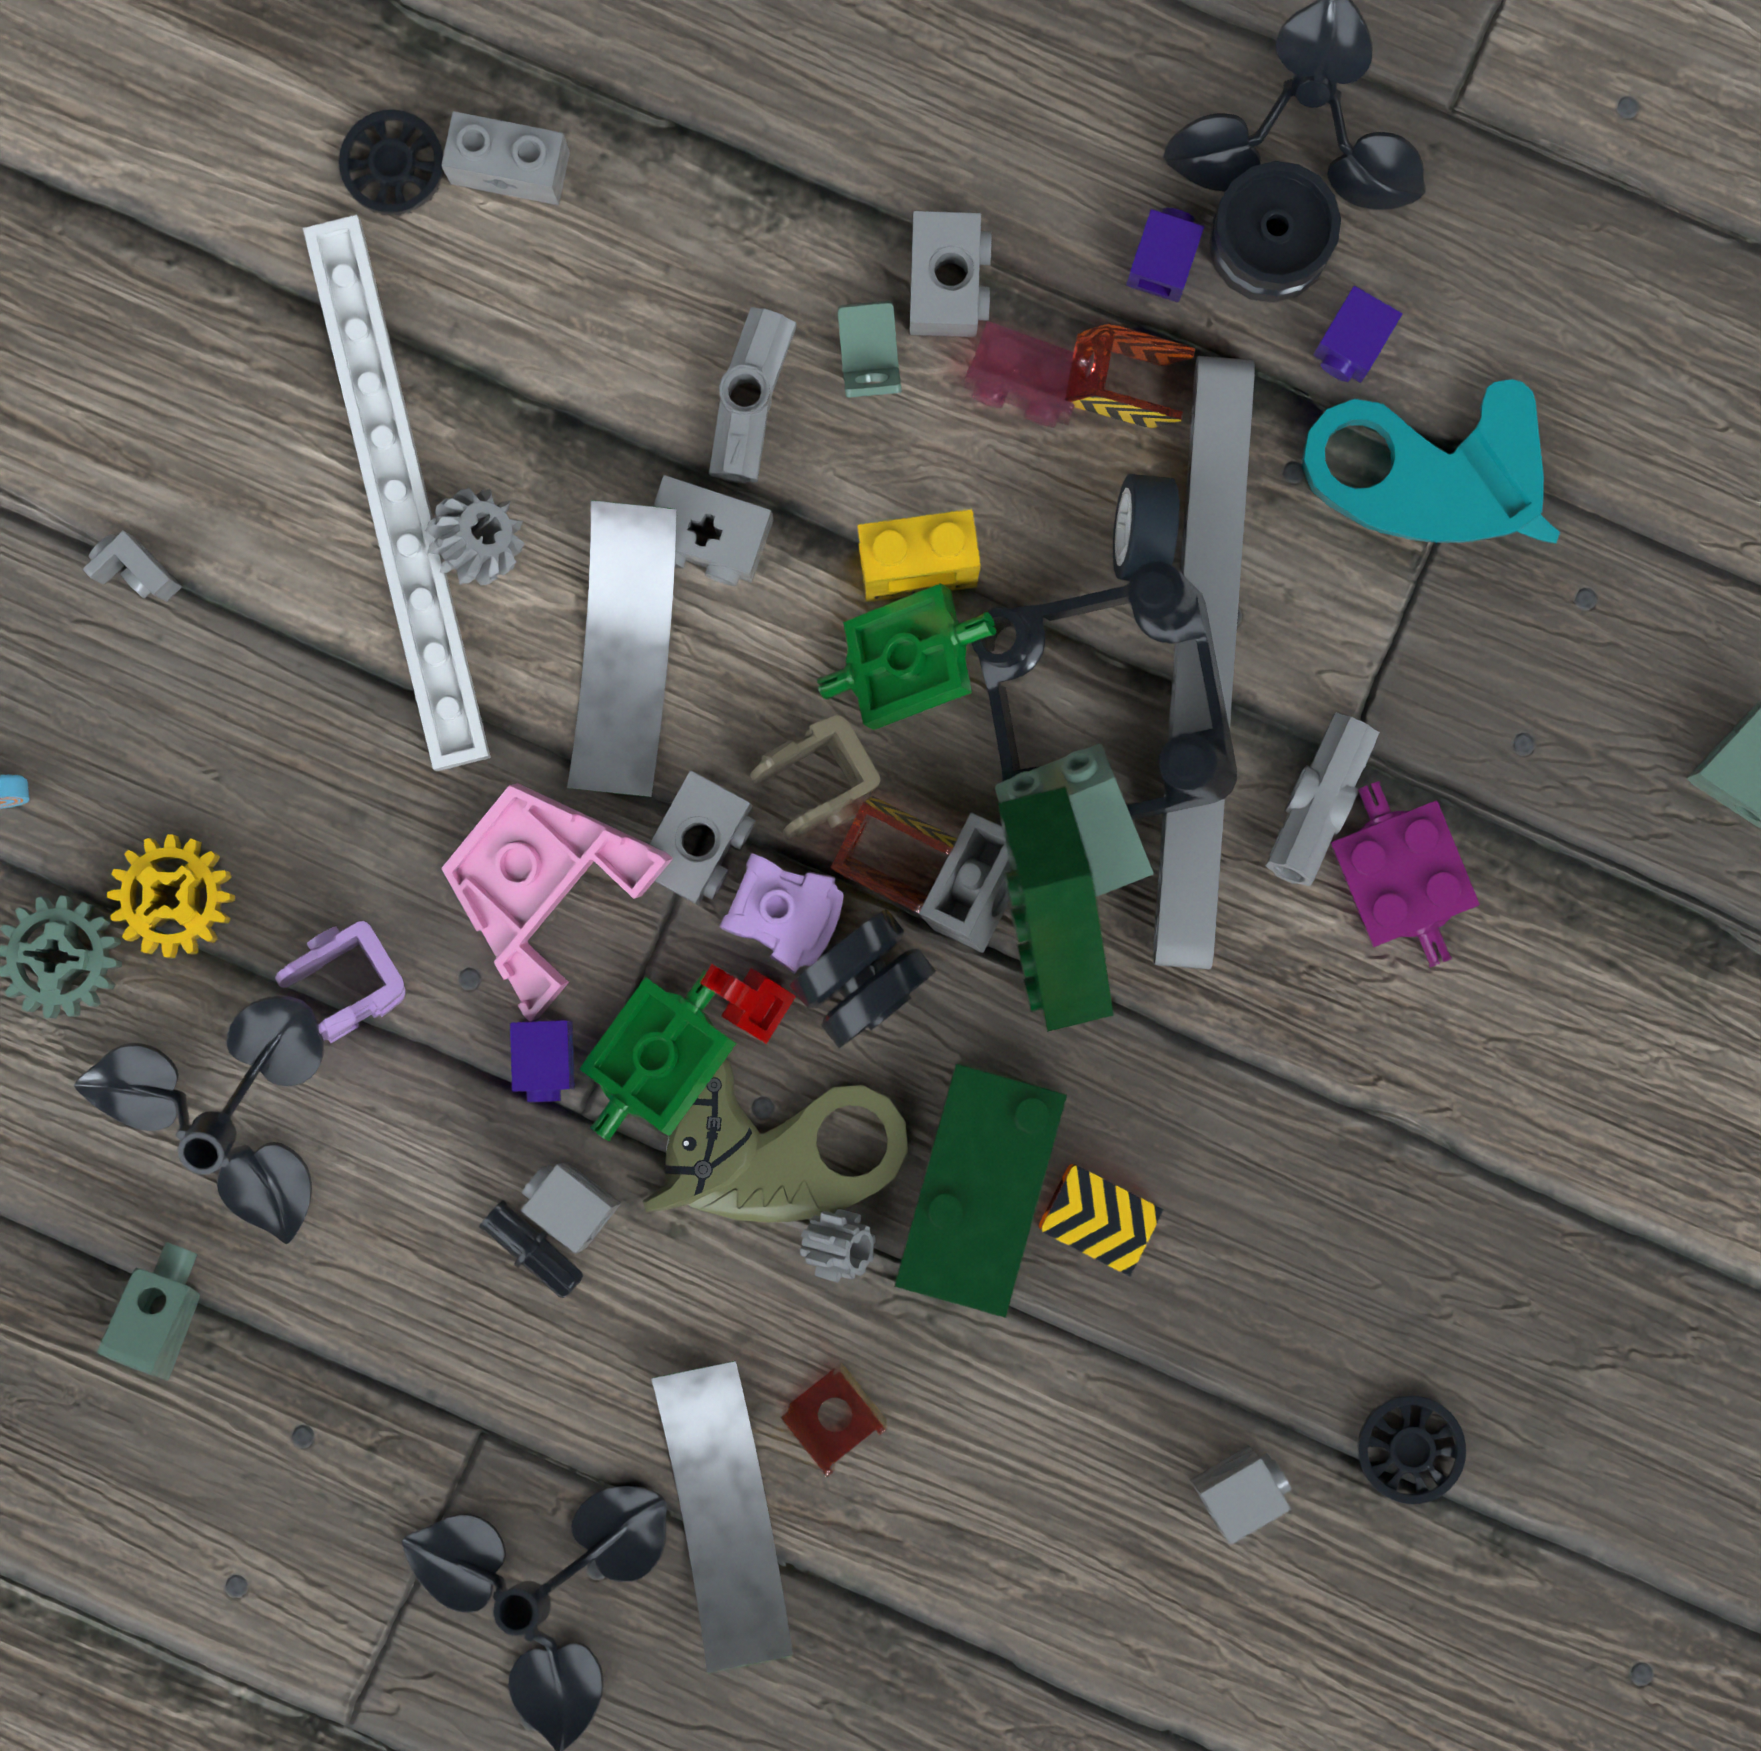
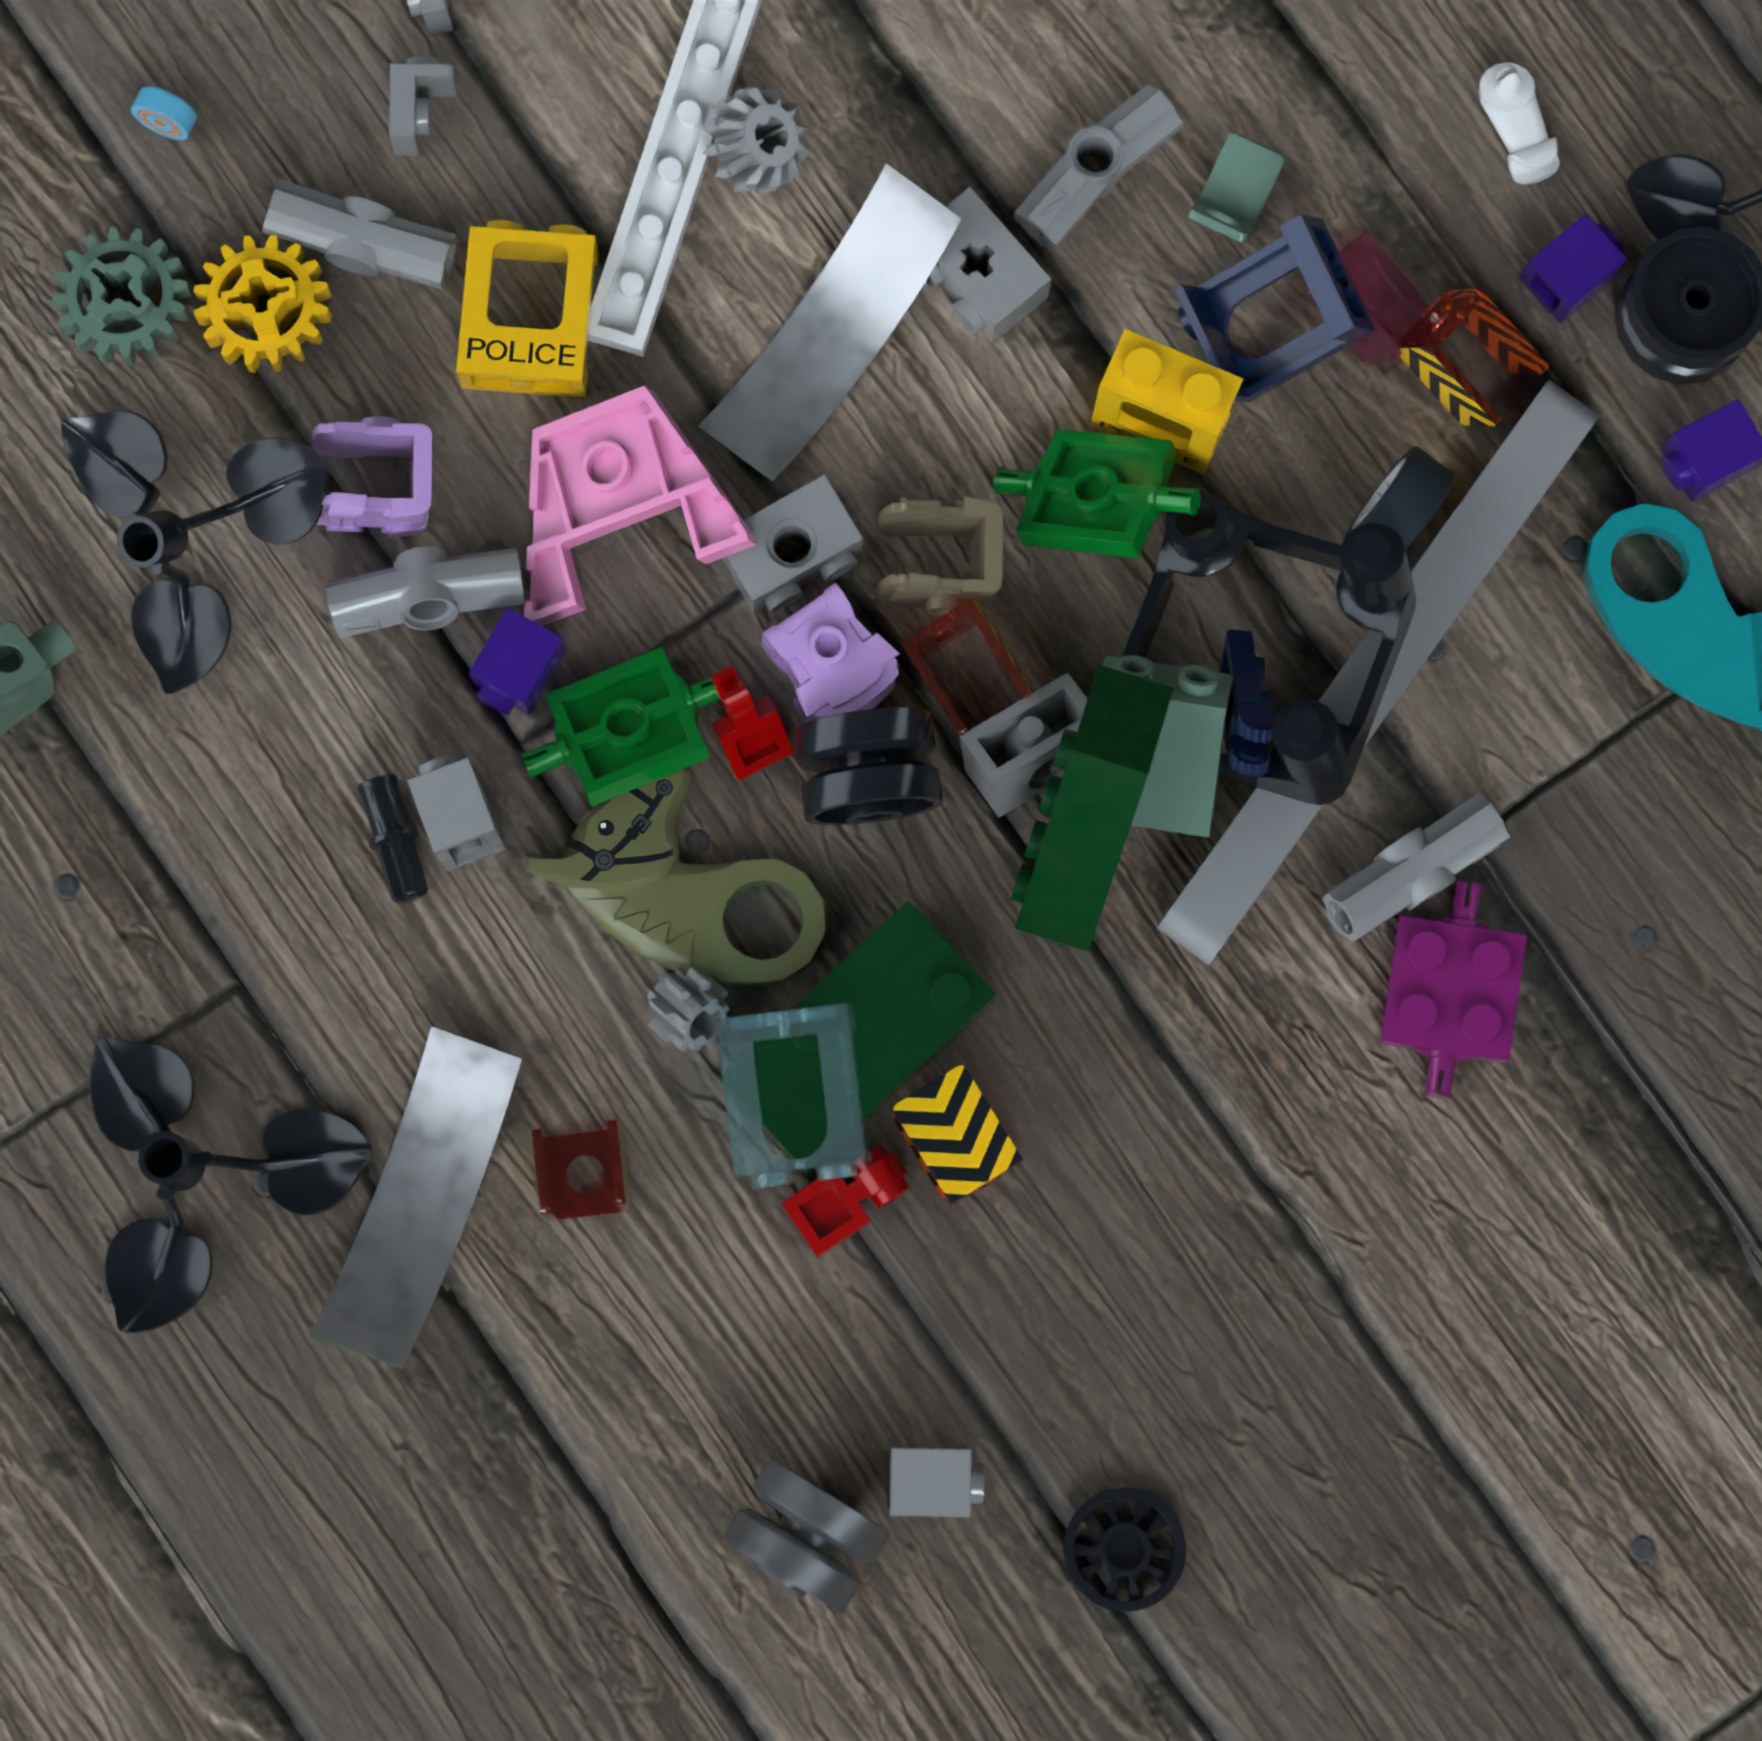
camera: 25 degrees right, 5 degrees down
(189, 675) = (410, 100): none -> light grey bracket
(213, 796) = (360, 235): none -> light grey piece
(399, 817) = (521, 357): none -> yellow window
(436, 1044) = (425, 590): none -> light grey piece
(902, 453) = (1305, 247): none -> dark blue panel
(939, 241) = (1362, 129): light grey brick -> none
(1026, 1286) = (845, 1129): none -> clear light blue panel
(1038, 1329) = (830, 1210): none -> red plate
(1043, 155) = (1513, 109): none -> white piece
(1133, 769) = (1248, 711): none -> dark blue hinge
(1172, 1592) = (801, 1543): none -> flat silver wheel

